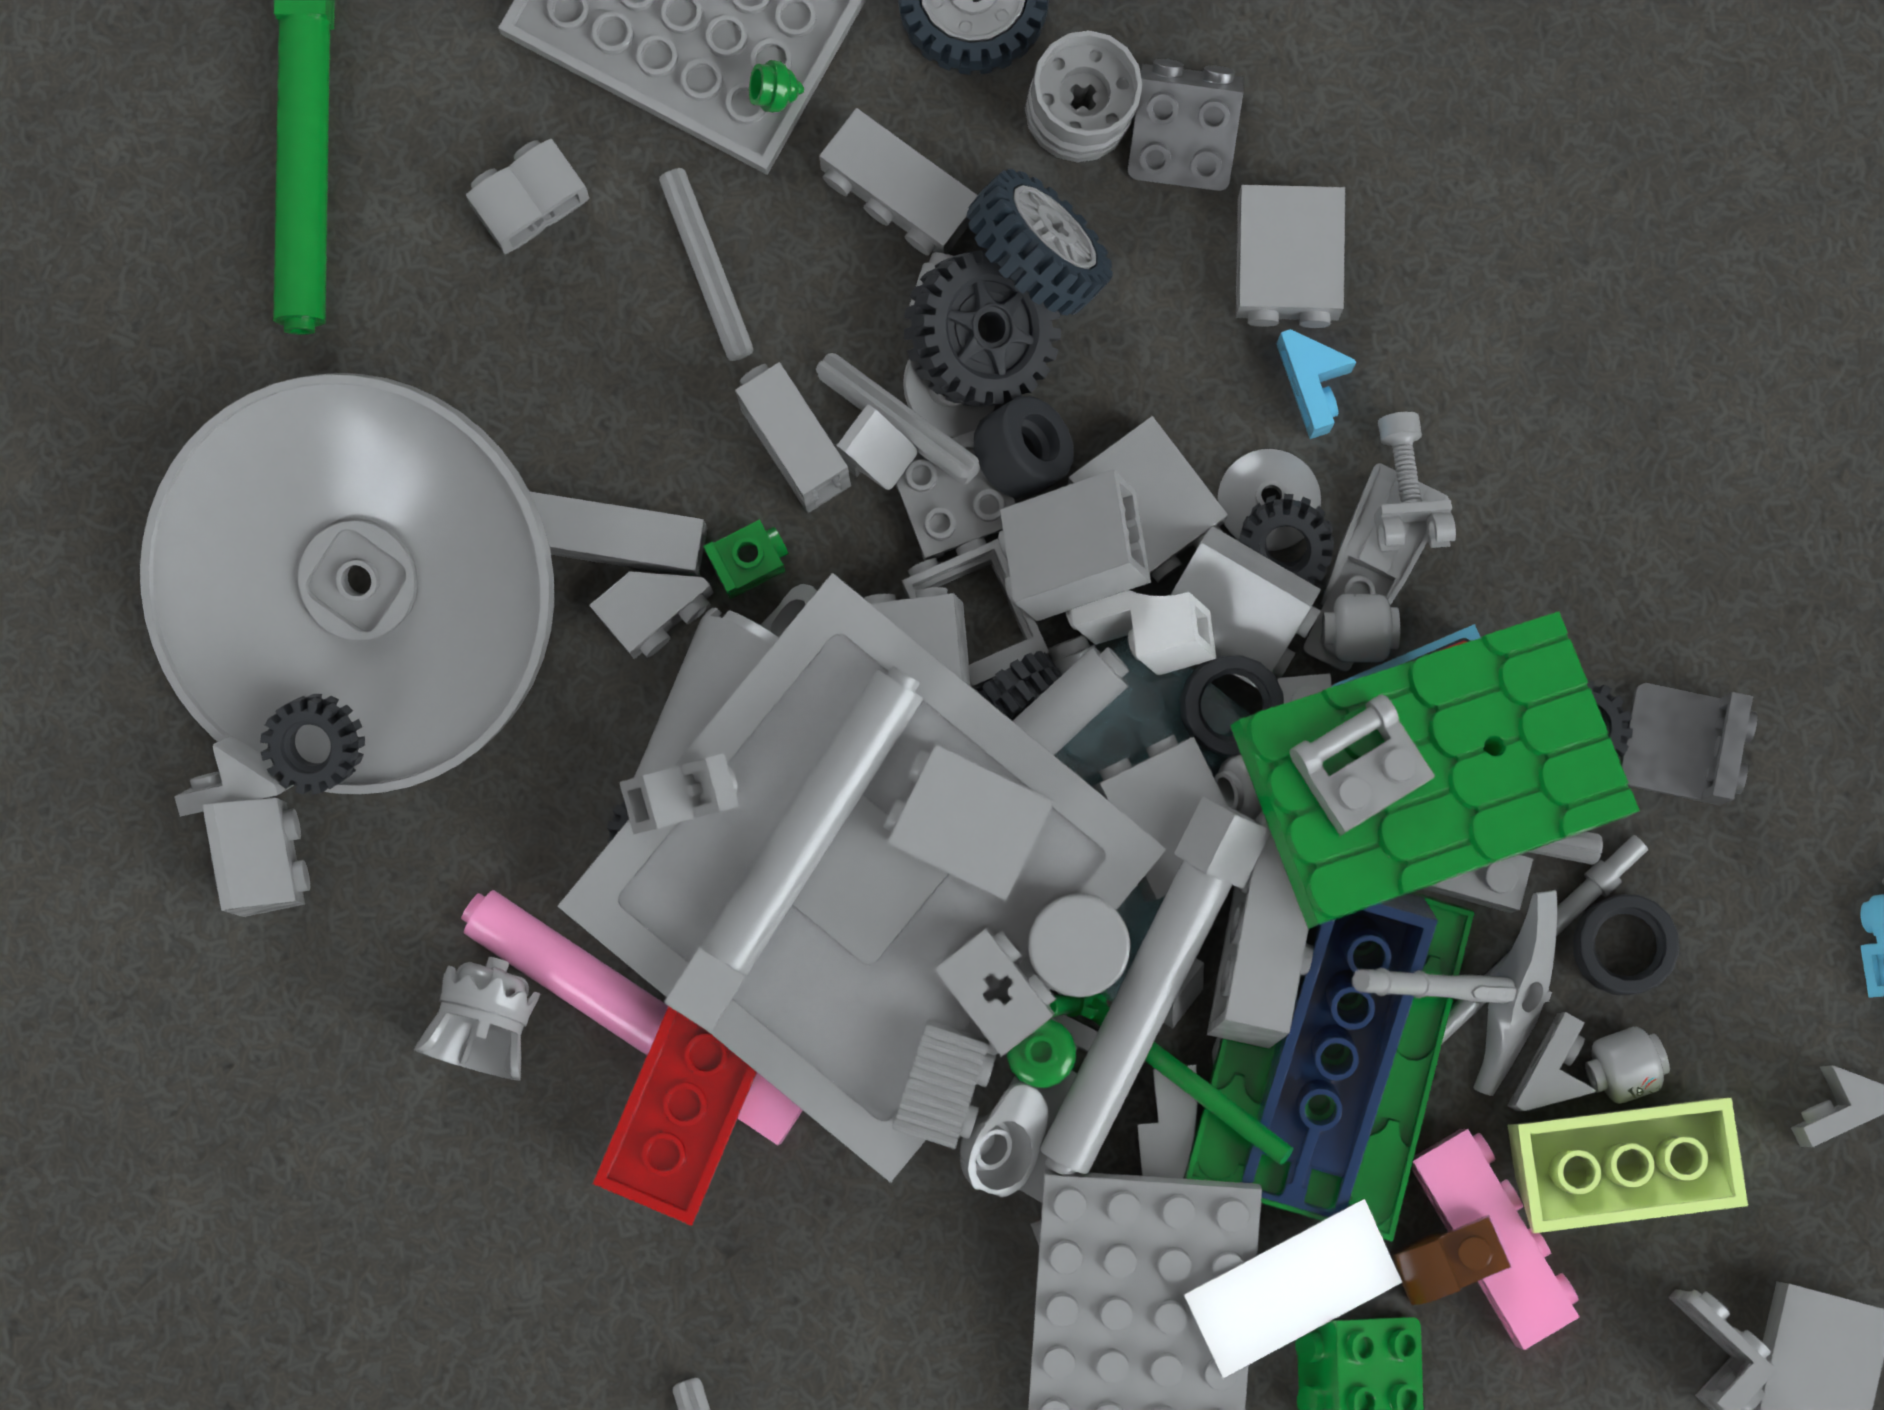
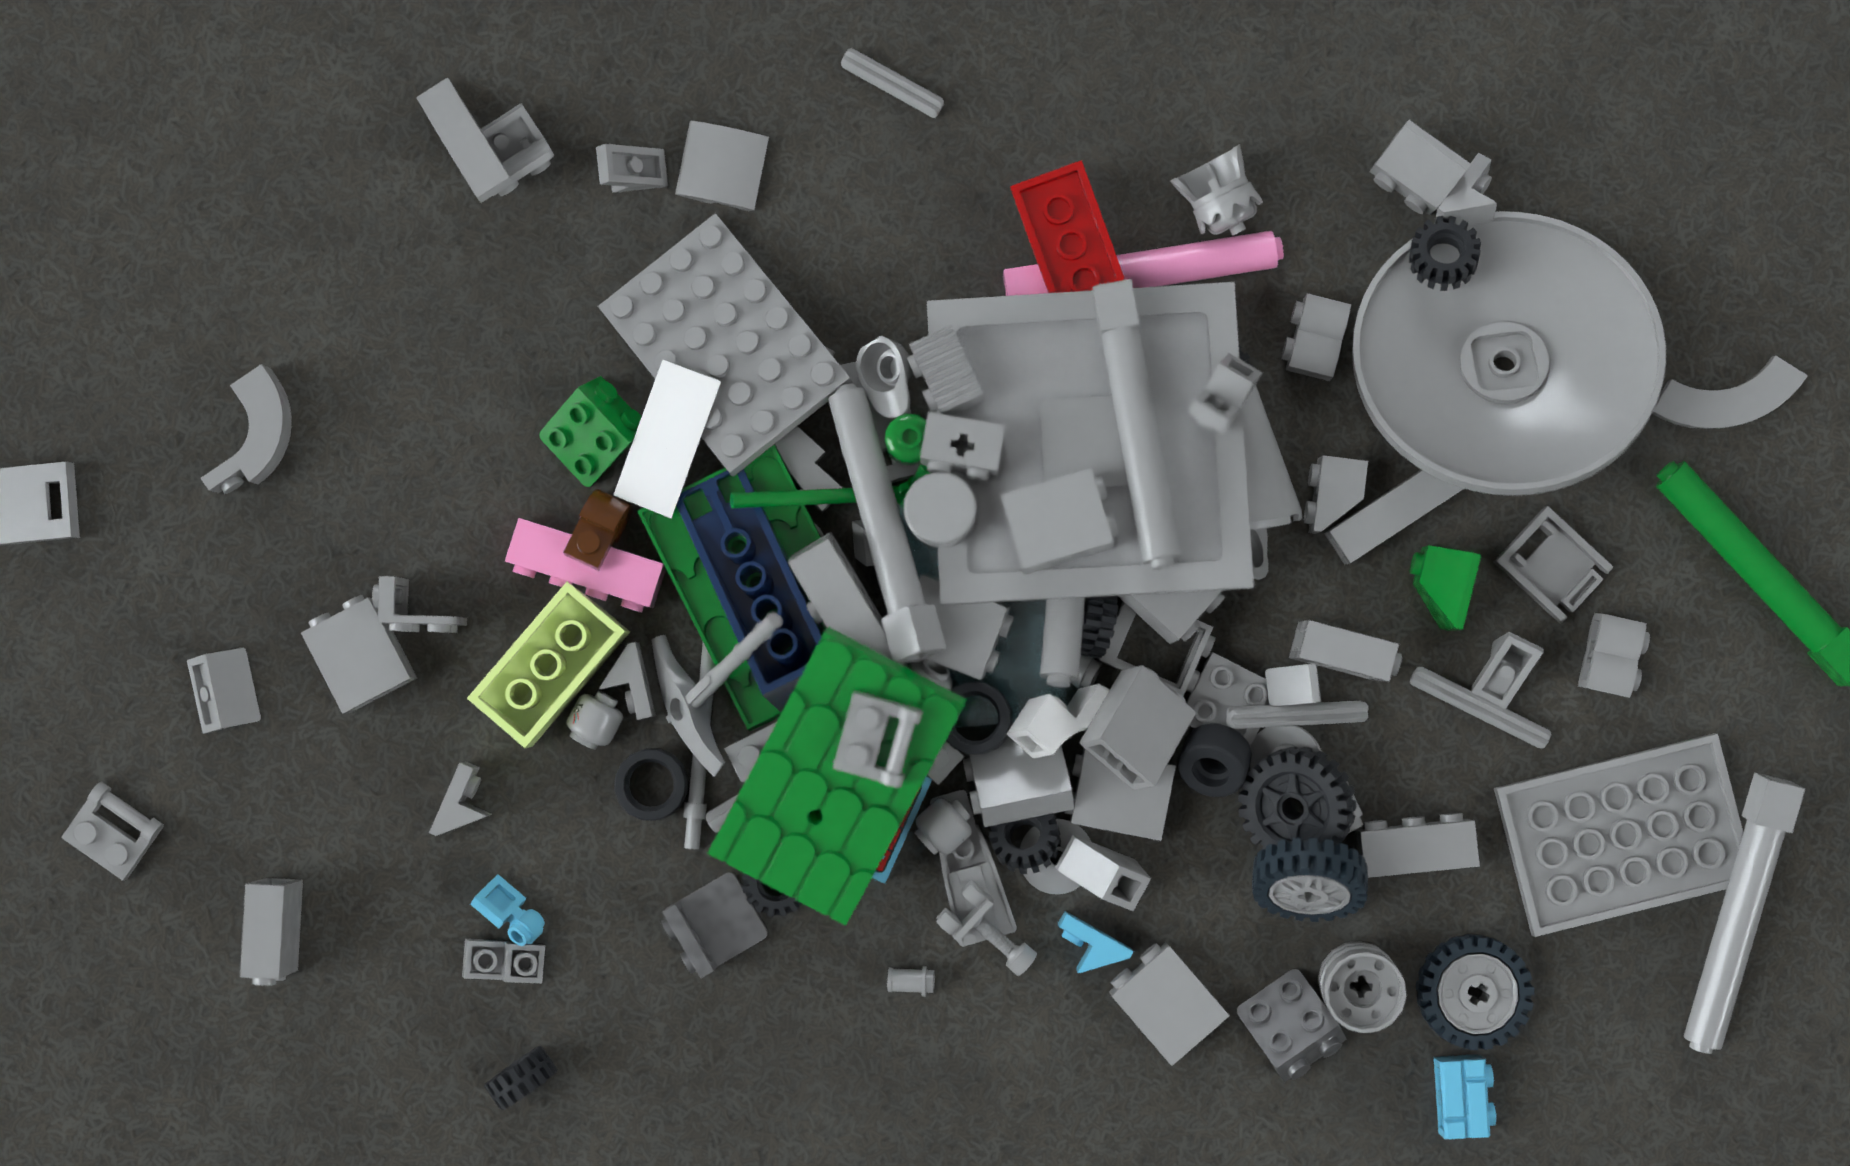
camera: 140 degrees right, 5 degrees up
(170, 330) = (1730, 406): none -> light grey tile
(499, 331) = (1557, 568): none -> light grey container
(519, 781) = (1317, 336): none -> light grey brick
(627, 412) = (1445, 583): none -> green slope
(647, 275) = (1506, 669): none -> light grey slope
(742, 576) = (1303, 550): green brick -> none
(773, 86) = (1535, 837): green plate -> none
(1238, 436) = (1104, 872): none -> light grey slope
(1531, 507) = (911, 980): none -> light grey pin

